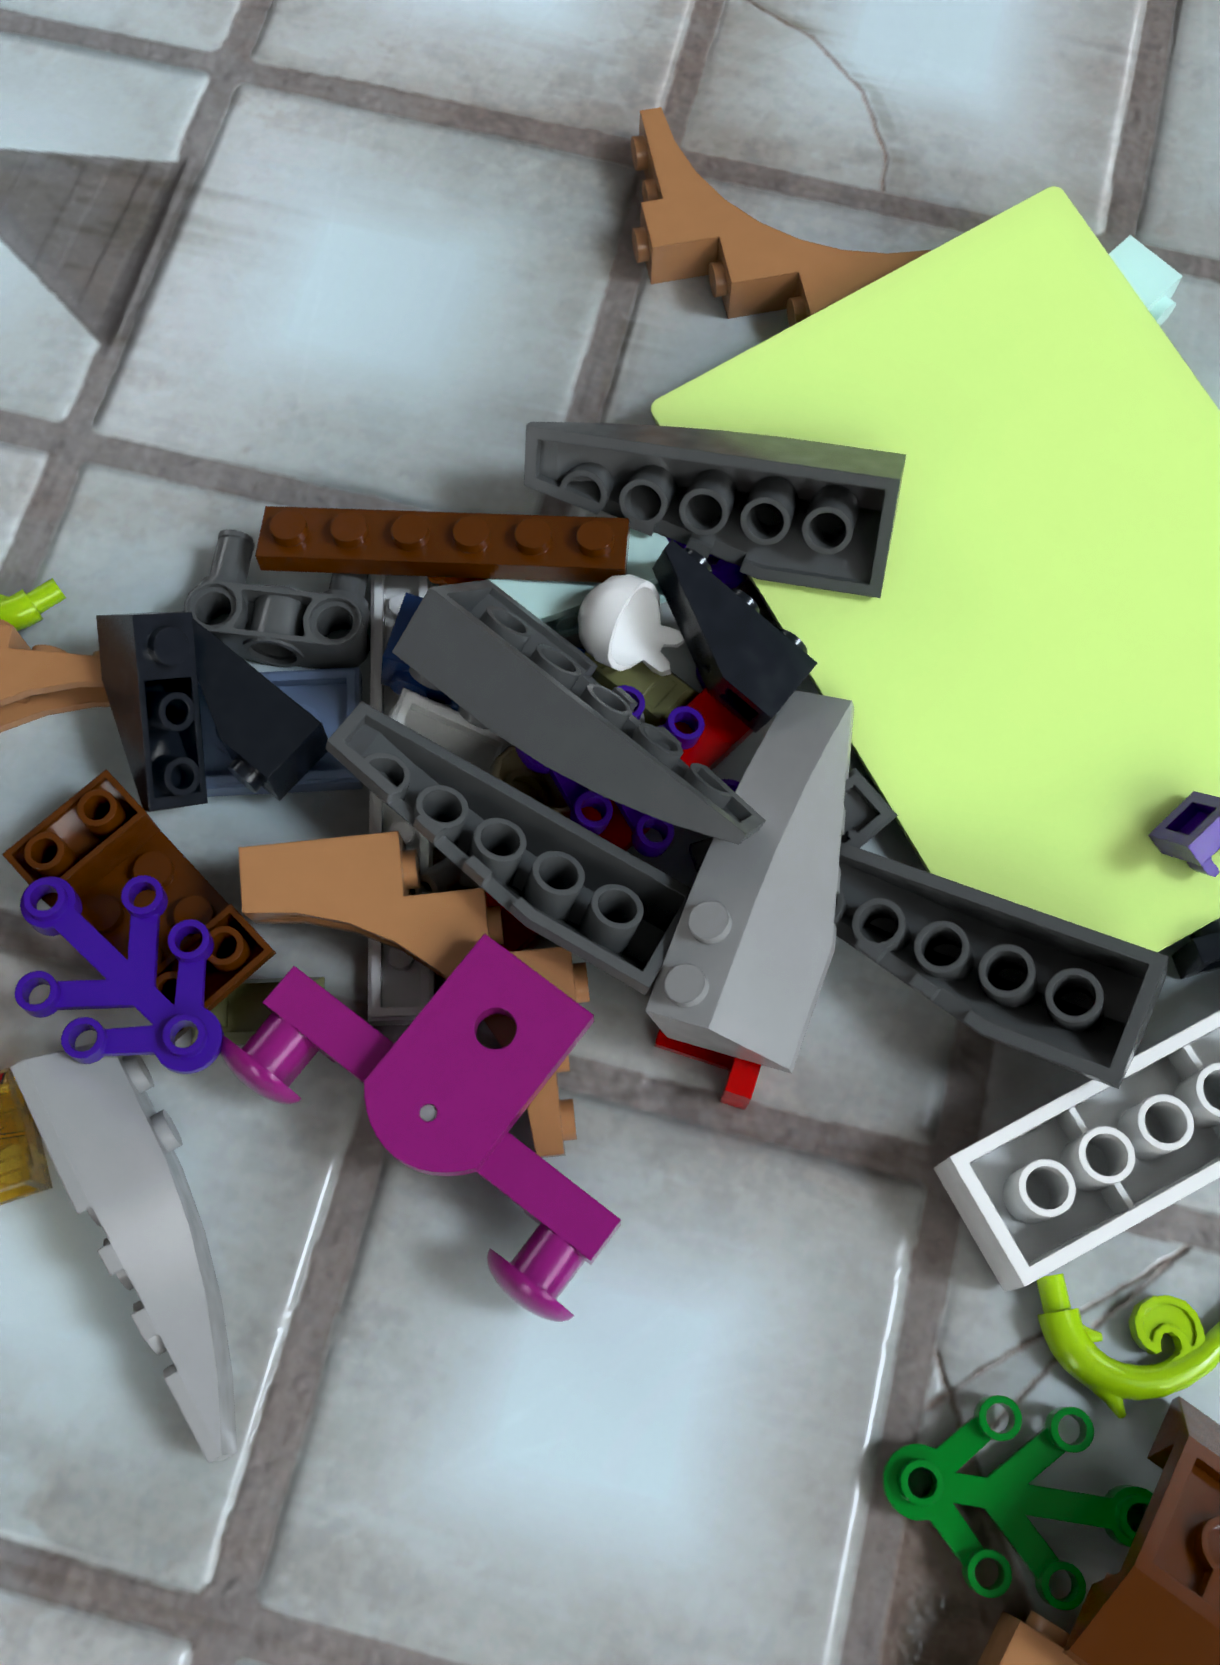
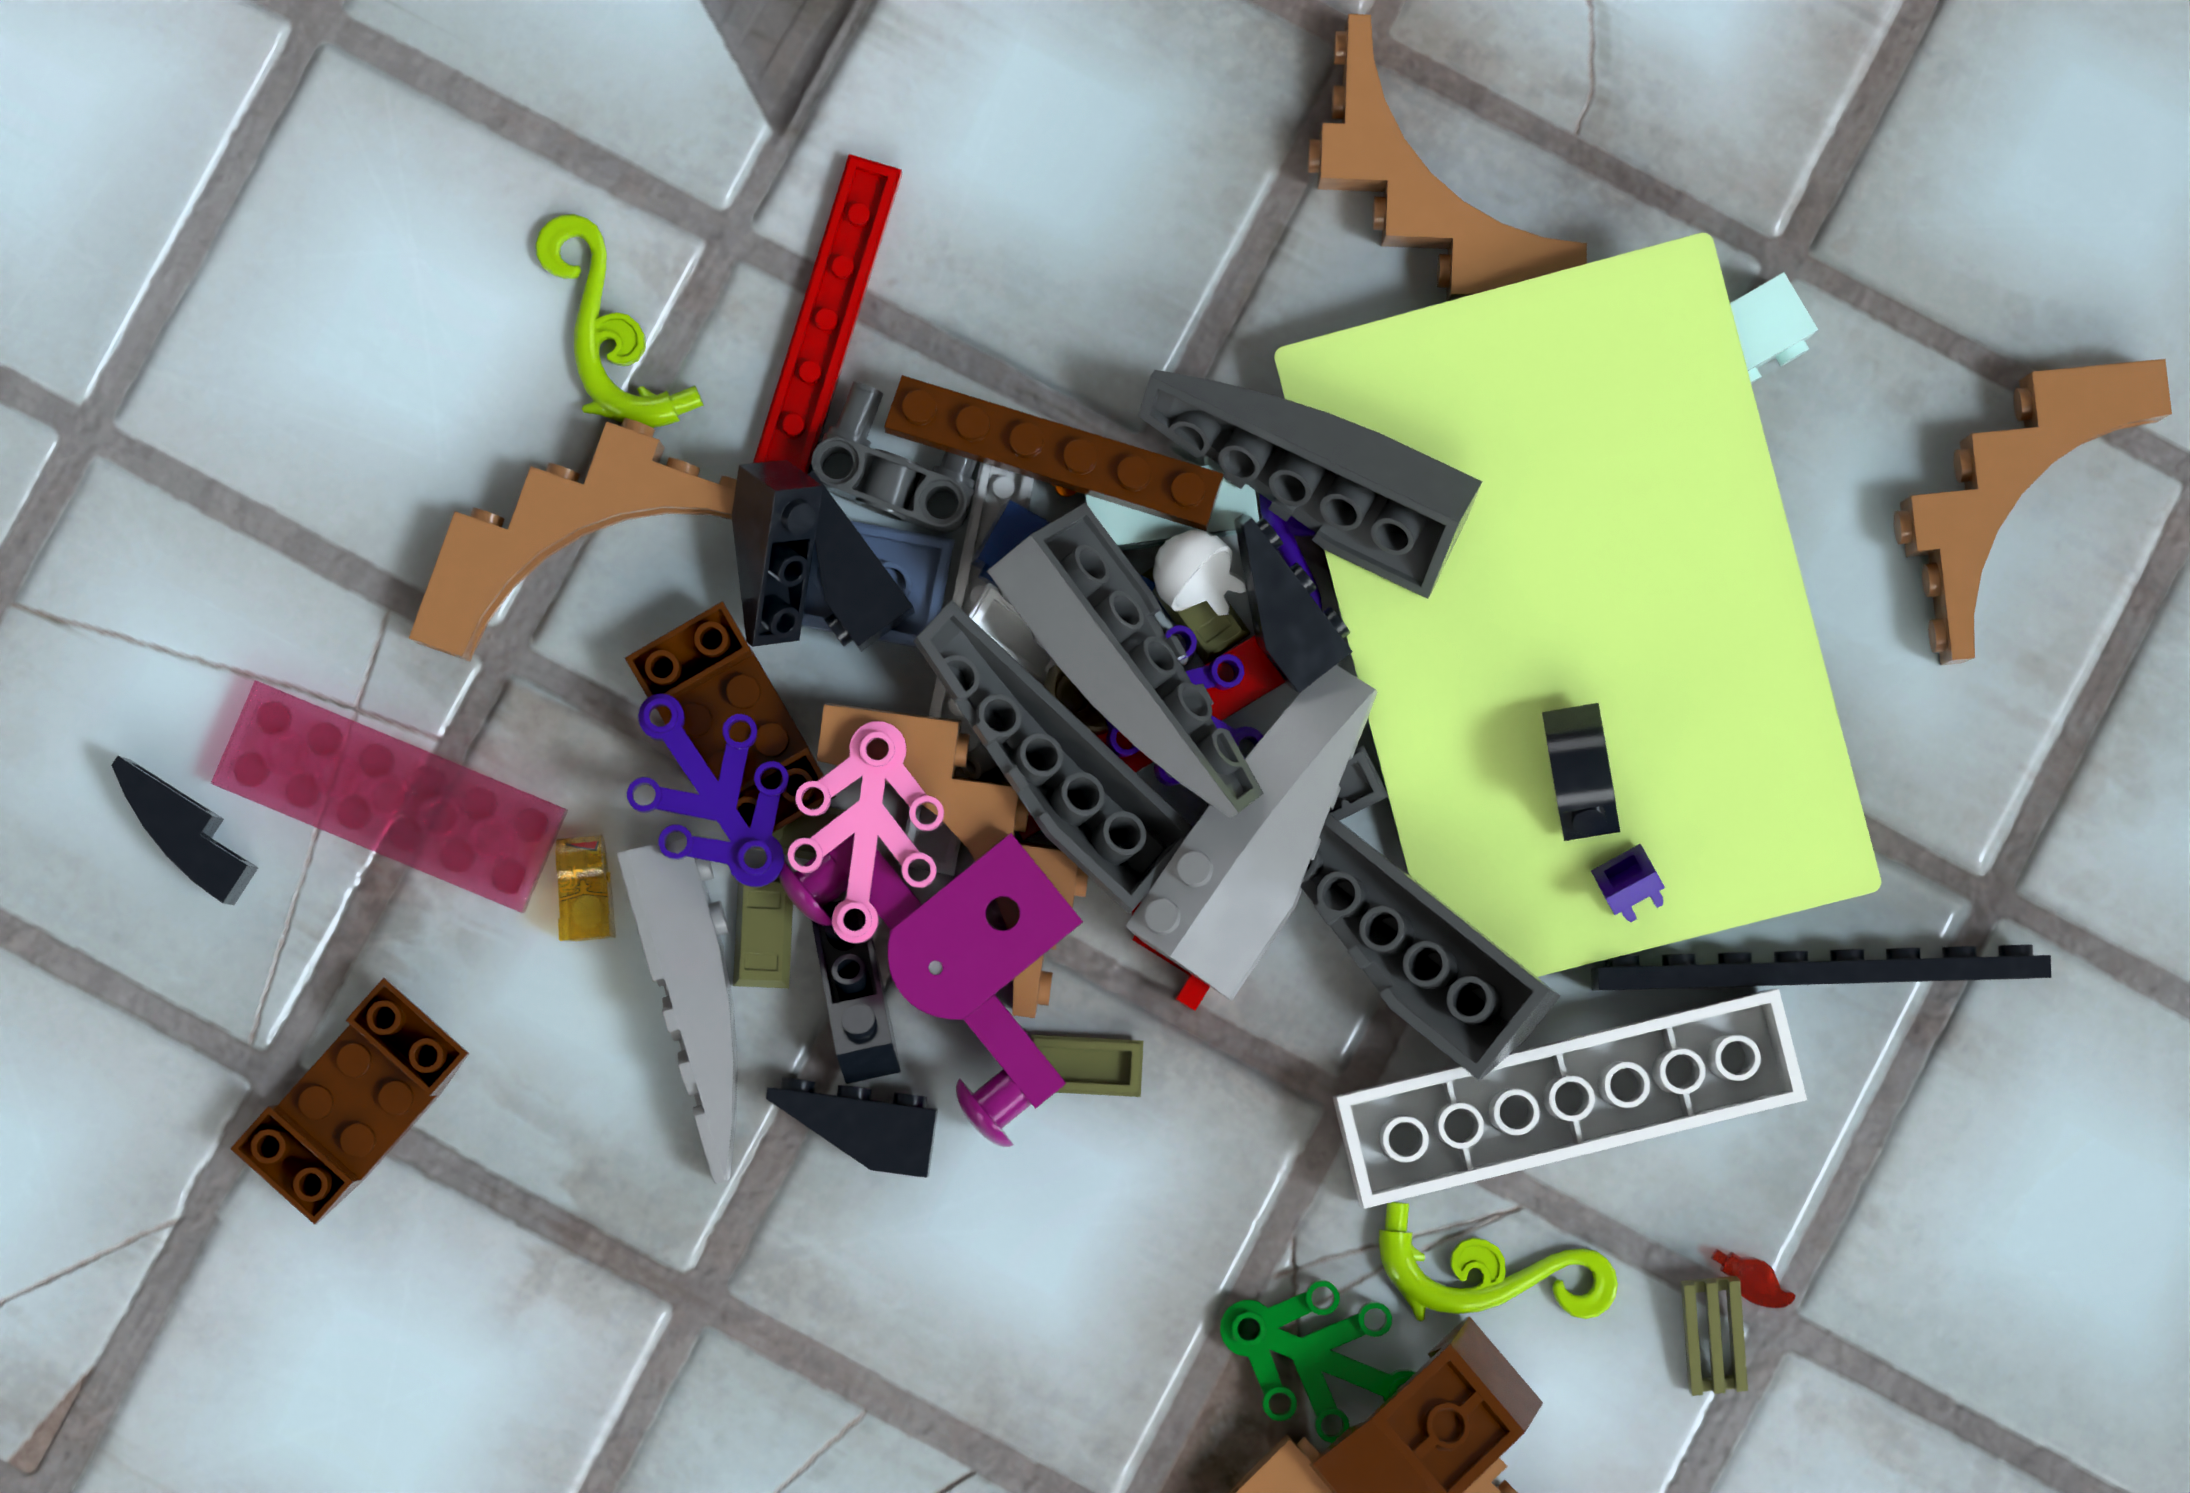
camera: 10 degrees right, 15 degrees up
(186, 475) = (829, 312): none -> red tile
(225, 1140) = (763, 936): none -> olive tile
(311, 961) = (867, 820): none -> bright pink plant
(346, 1184) = (856, 1001): none -> black slope
(398, 1346) = (874, 1133): none -> black slope
(652, 1197) = (1095, 1064): none -> olive tile
(1114, 719) = (1581, 771): none -> black brick

